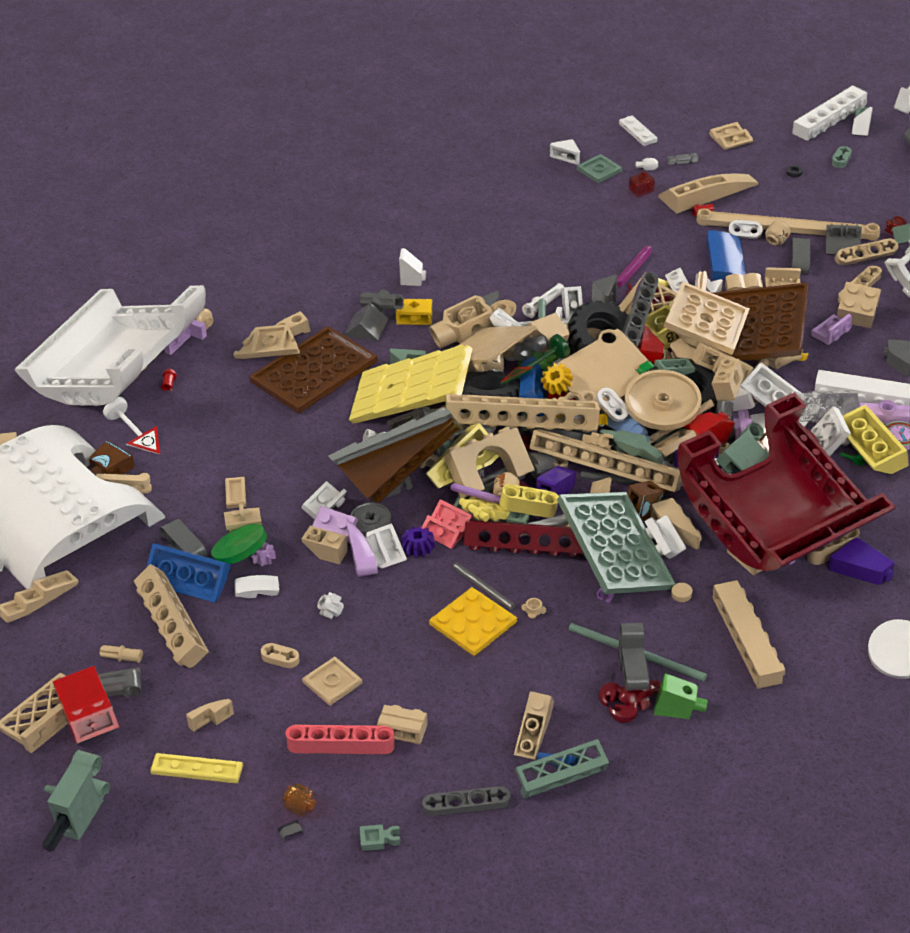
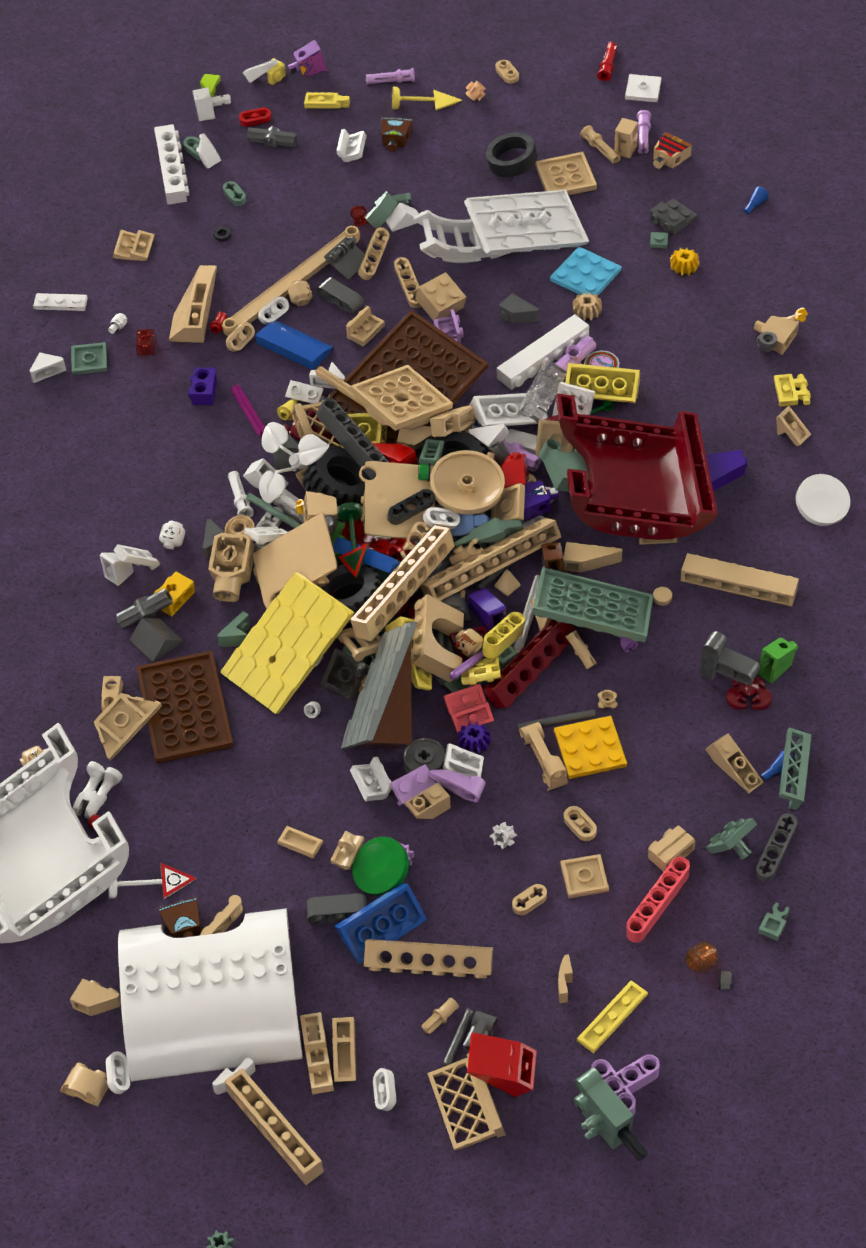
camera: 55 degrees left, 10 degrees up
(34, 649) = (384, 1089): none -> white plate
(50, 609) = (344, 1049): none -> tan slope
(124, 802) = (636, 1070): none -> lavender beam
(191, 363) = (89, 795): none -> white piece
(259, 584) = (434, 879): white slope -> none
(382, 652) = (581, 824): none -> tan plate
(420, 602) = (553, 769): none -> tan piece
(426, 272) = (136, 556): none -> white plate
(443, 759) = (732, 838): none -> sand green plate
(469, 284) = (172, 534): none -> white head
(557, 379) = (386, 528): yellow gear -> none
(567, 562) = (581, 649): none -> tan pin
(598, 292) = (274, 436): none -> white plant
(618, 378) = (414, 499): none -> black beam
(630, 231) = (203, 386): none -> dark purple brick
(648, 656) = (696, 661): sand green piece -> none
(666, 536) = (604, 570): white bracket -> none
(682, 159) = (133, 295): dark grey axle -> none
(699, 225) = (239, 338): none -> tan plate
(727, 379) = (481, 427): tan brick -> none
(746, 281) = (347, 354): tan brick -> none

